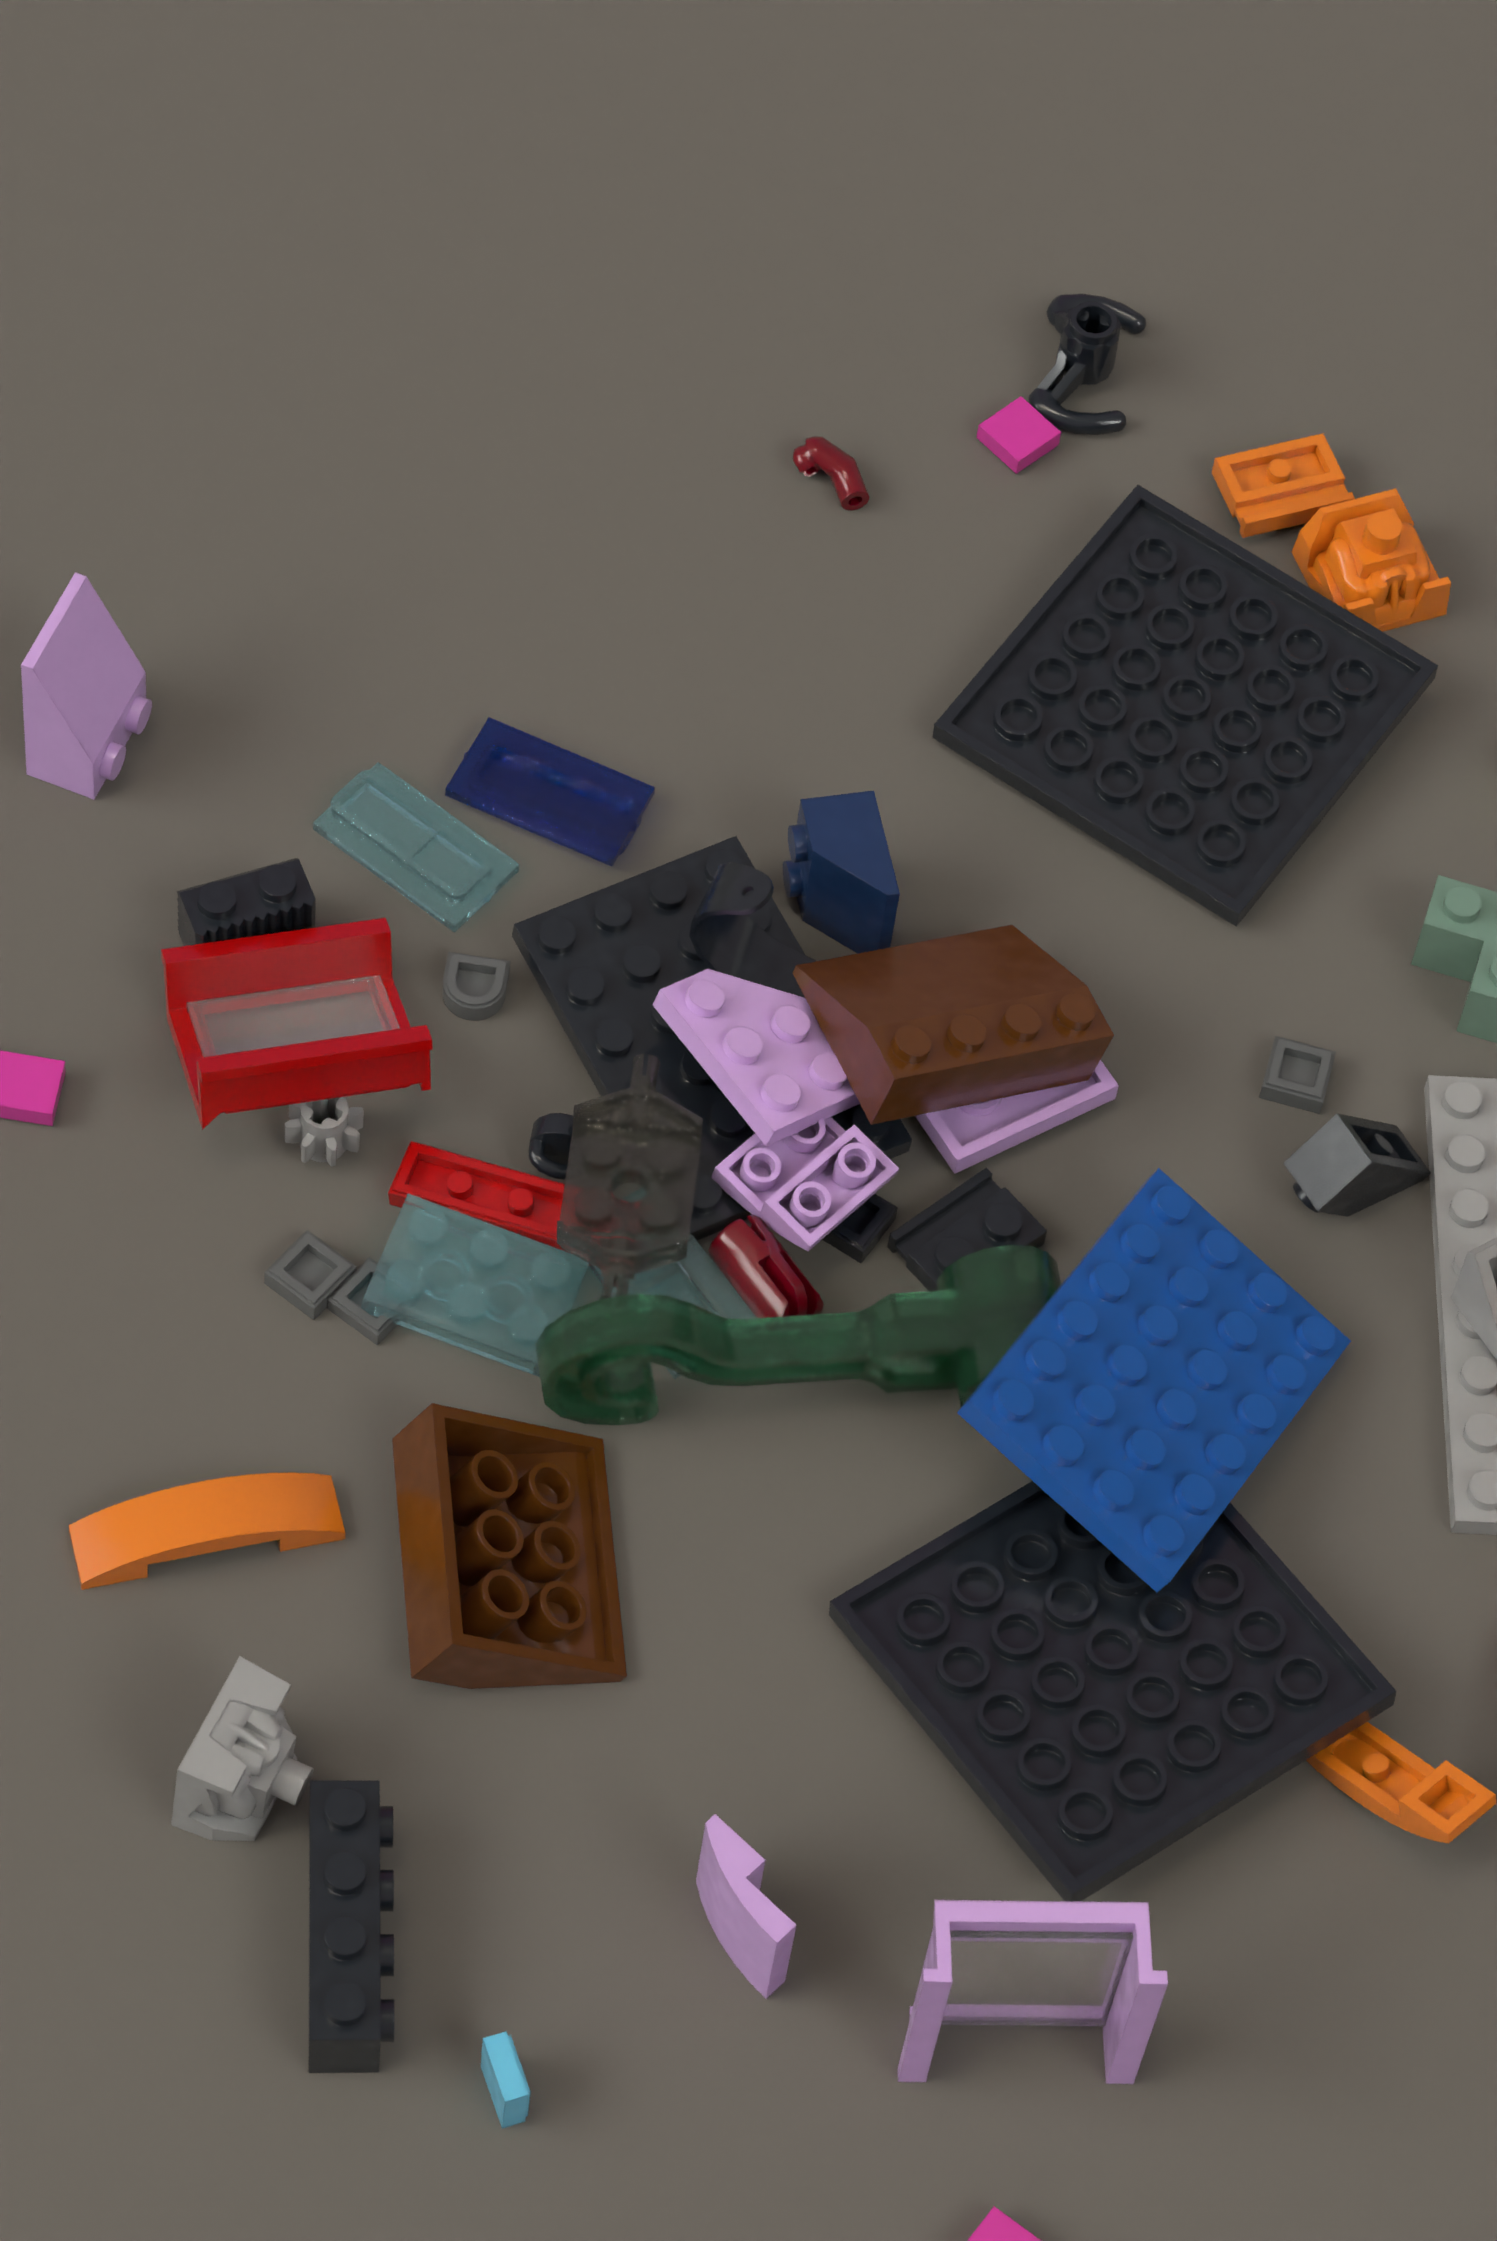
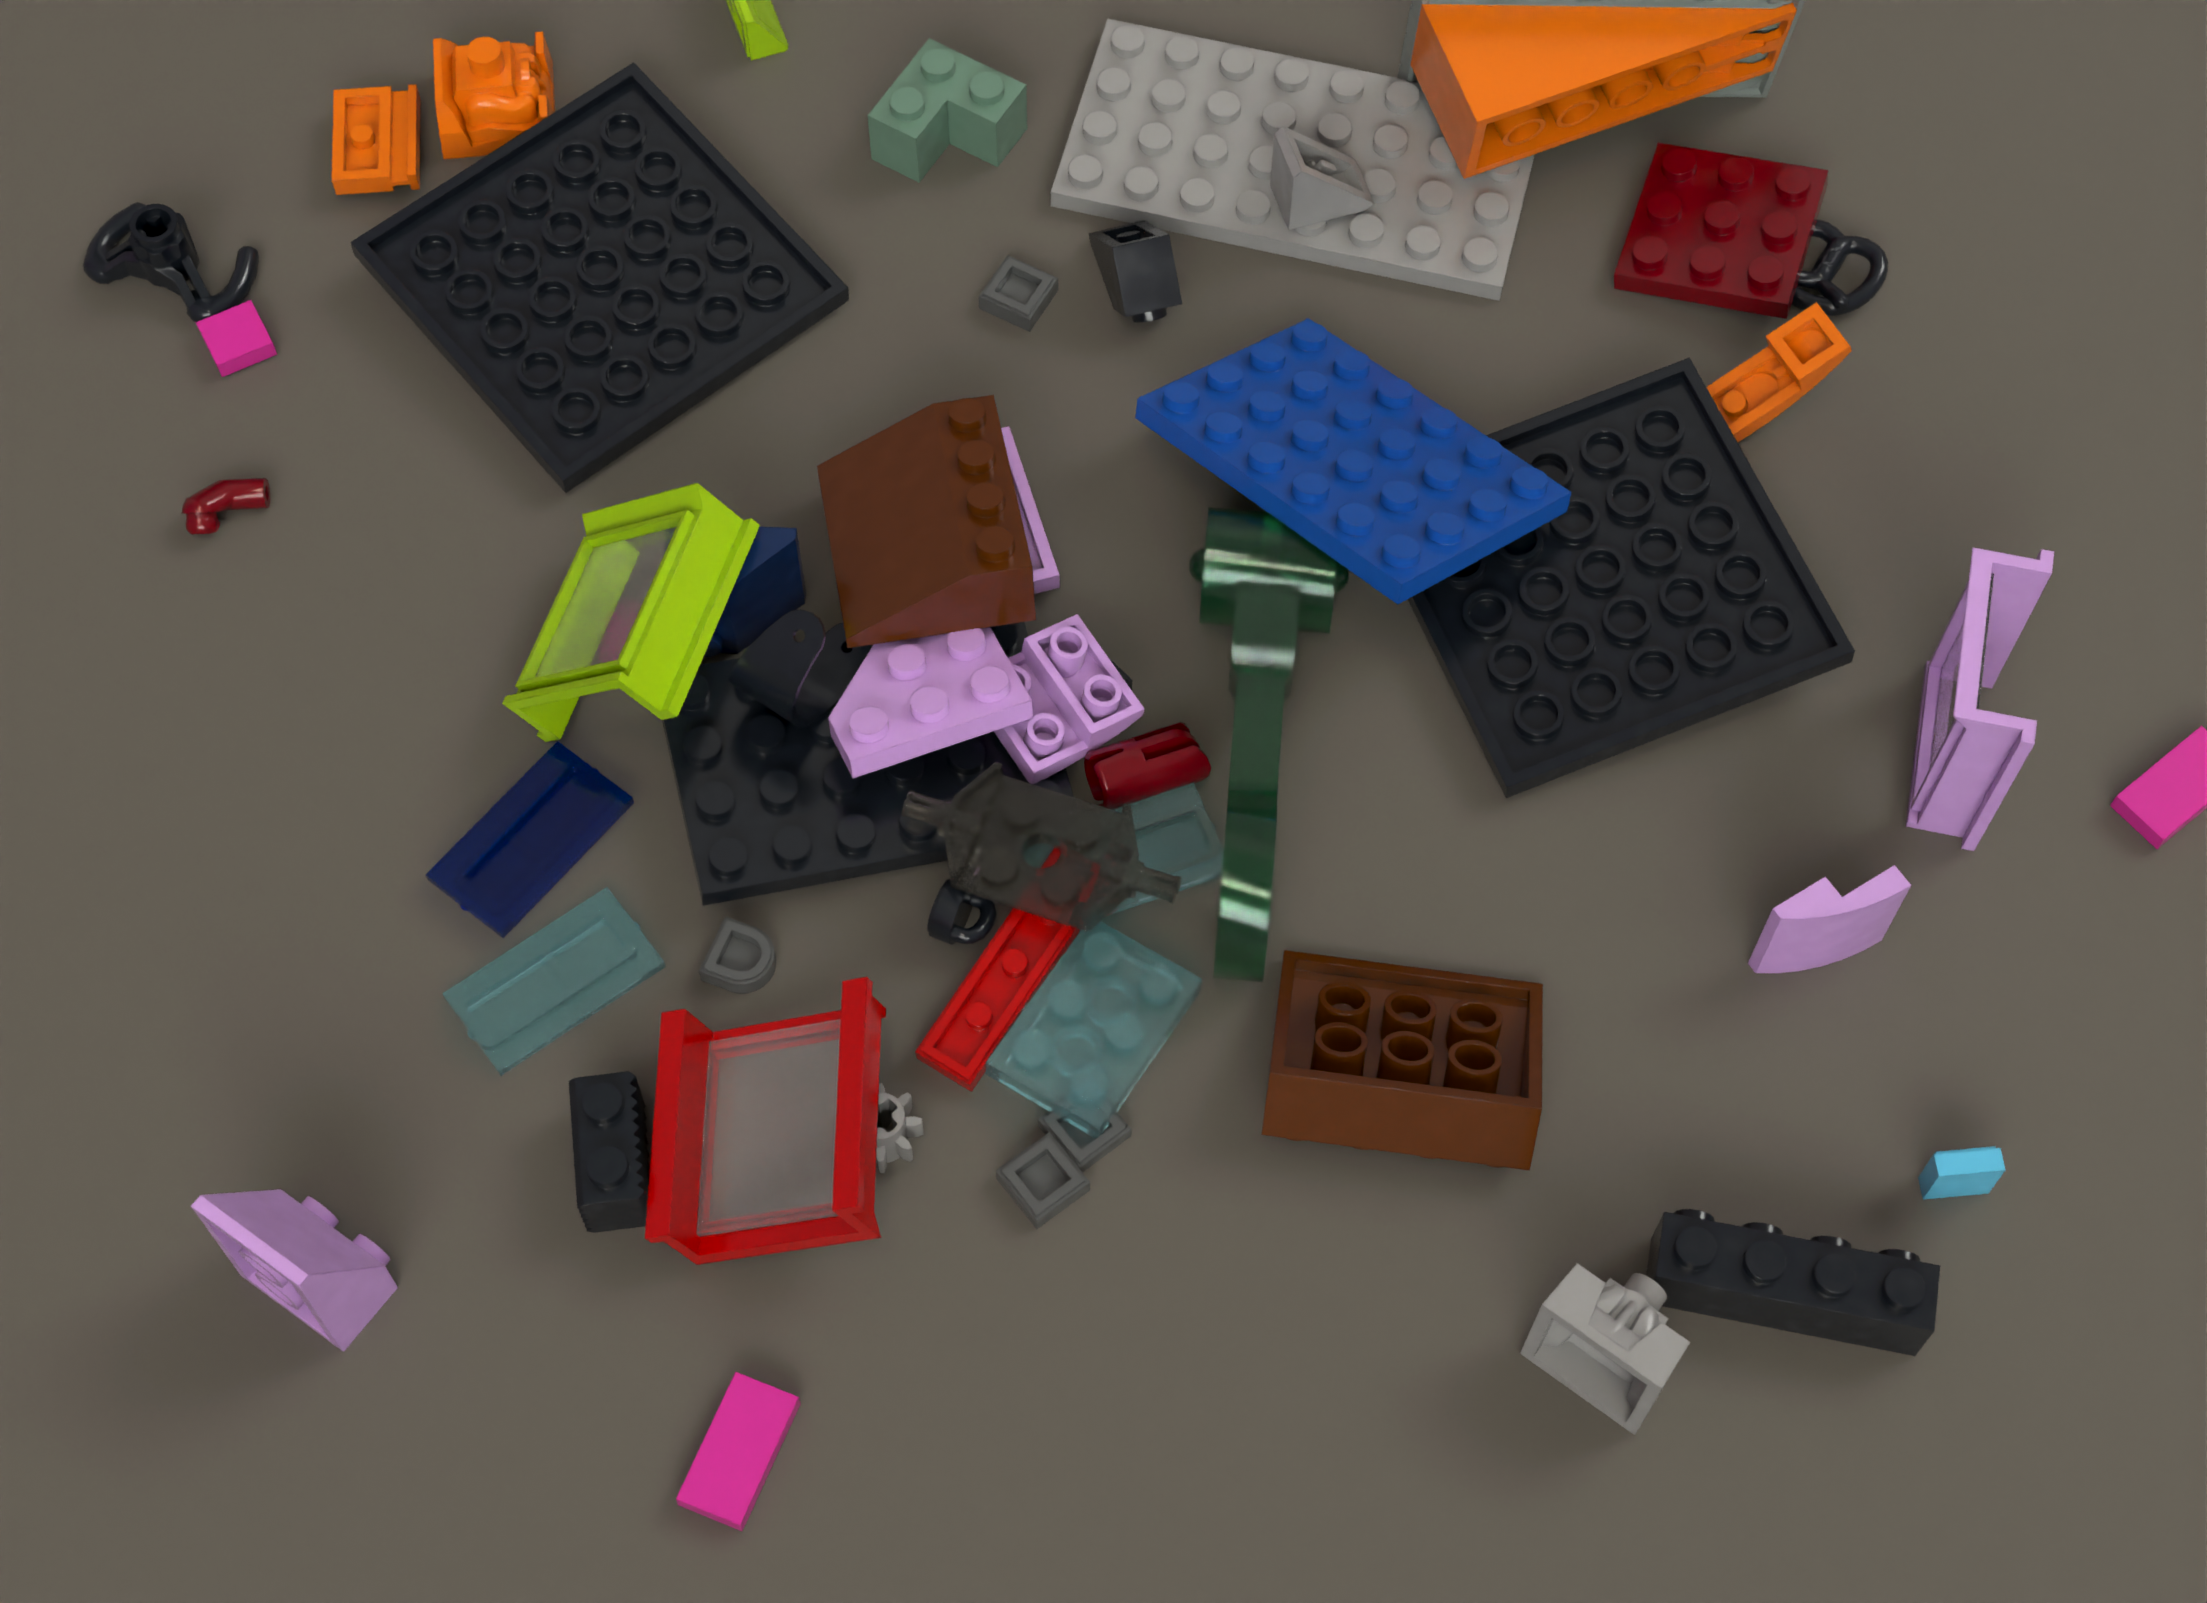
camera: 70 degrees left, 5 degrees up
(204, 1519) = (1318, 1340): orange slope -> none
(776, 791) = (635, 607): none -> lime piece
(962, 1223) = (1132, 593): black plate -> none

